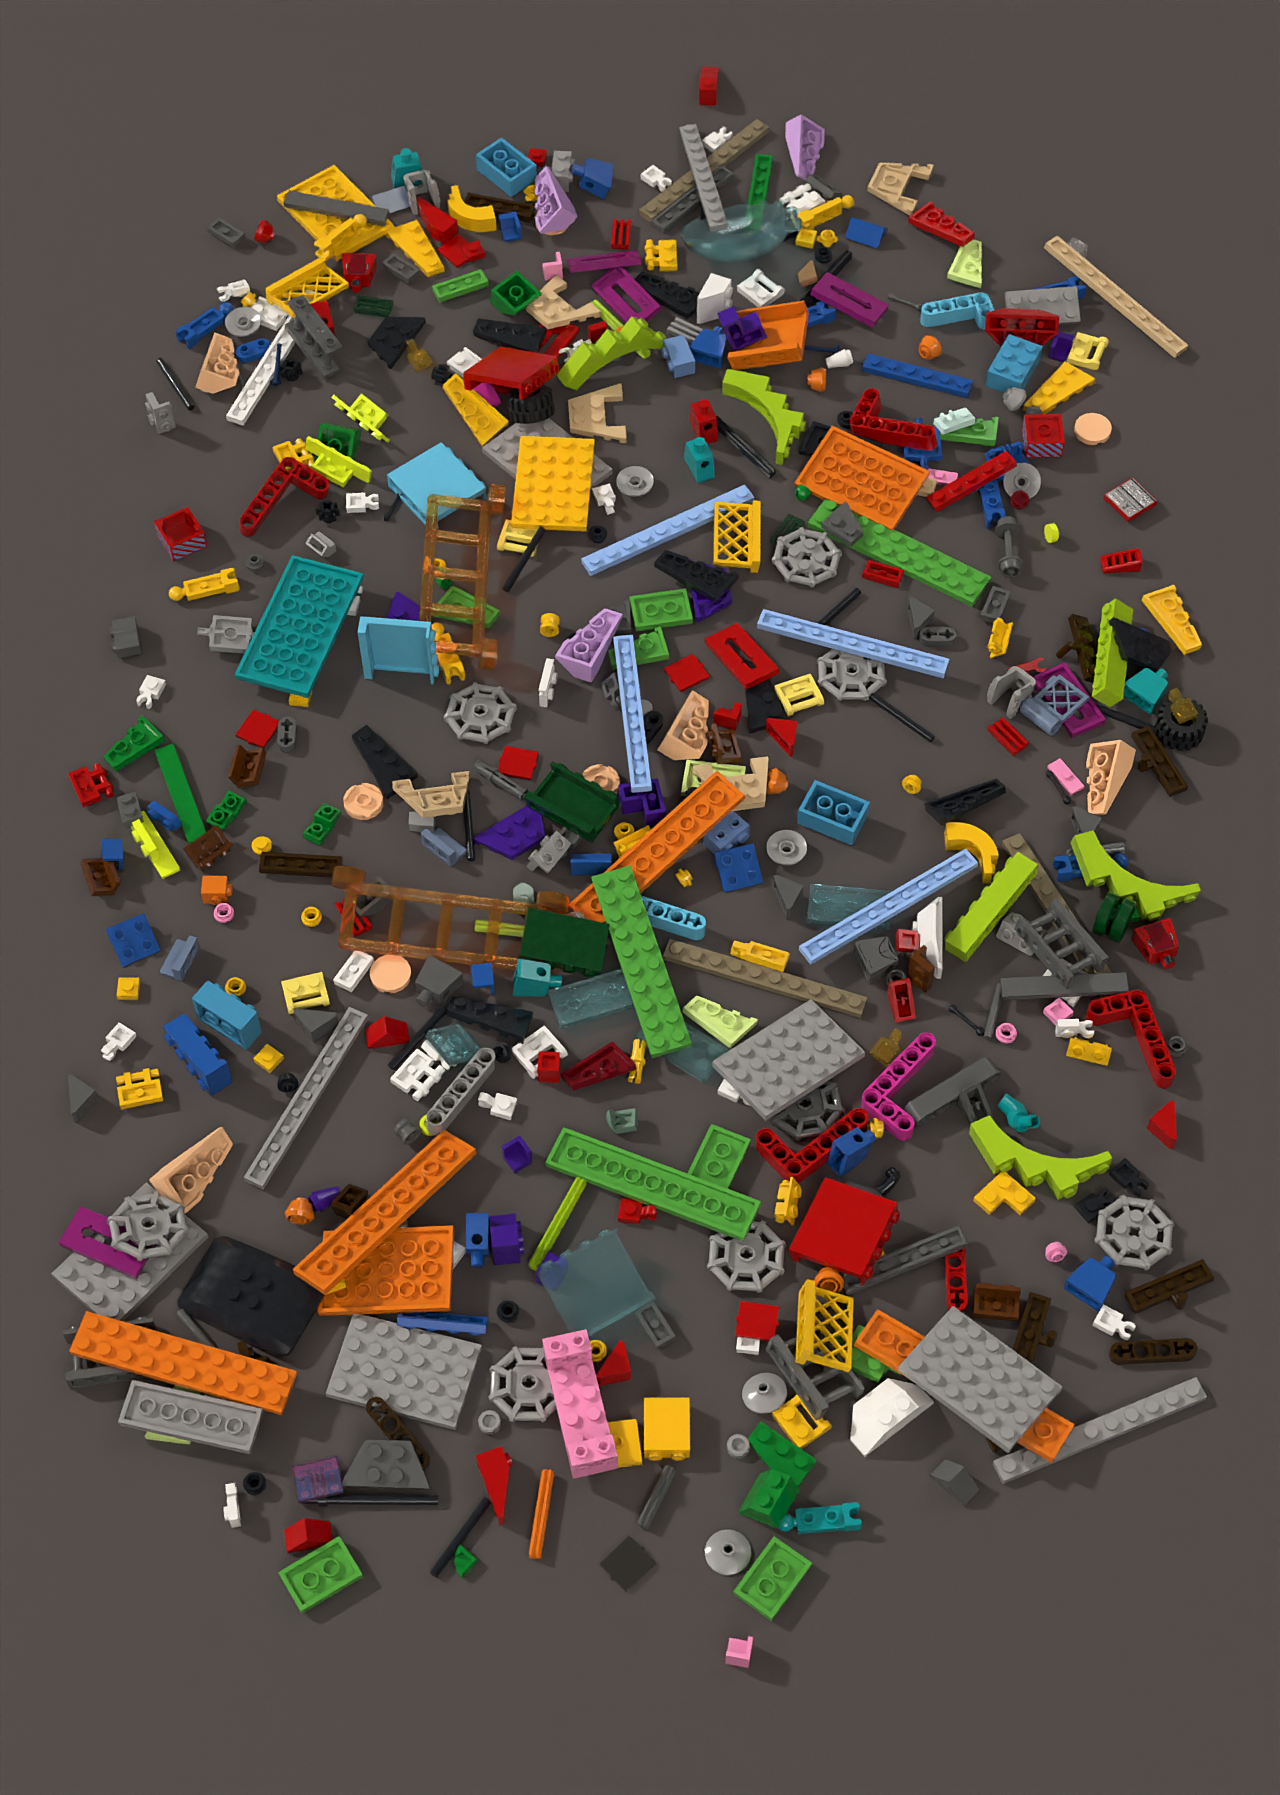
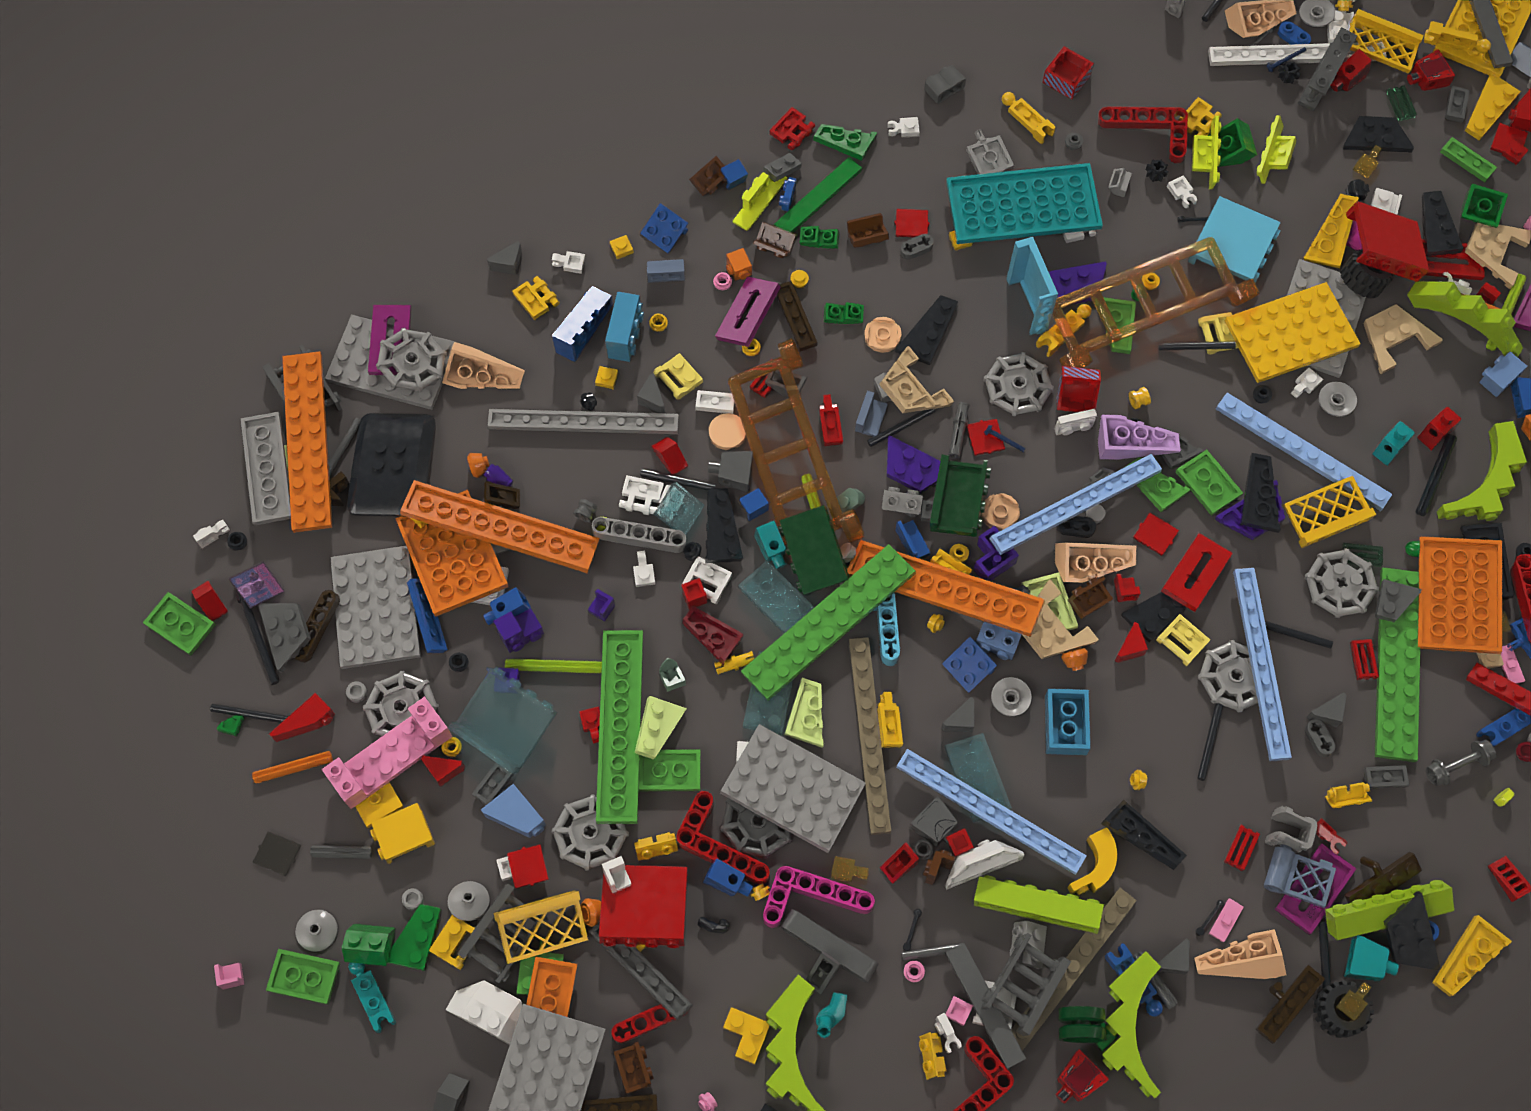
camera: 65 degrees right, 10 degrees up
(297, 913) = (755, 316): none -> magenta piece
(431, 880) = (830, 422): none -> red hinge
(515, 754) = (1003, 438): none -> dark blue piece
(518, 664) = (1078, 389): none -> red container
(670, 1150) = (657, 725): none -> yellowish green wing
(695, 1314) = (514, 812): none -> medium blue slope
(806, 1239) = (616, 874): none -> white panel

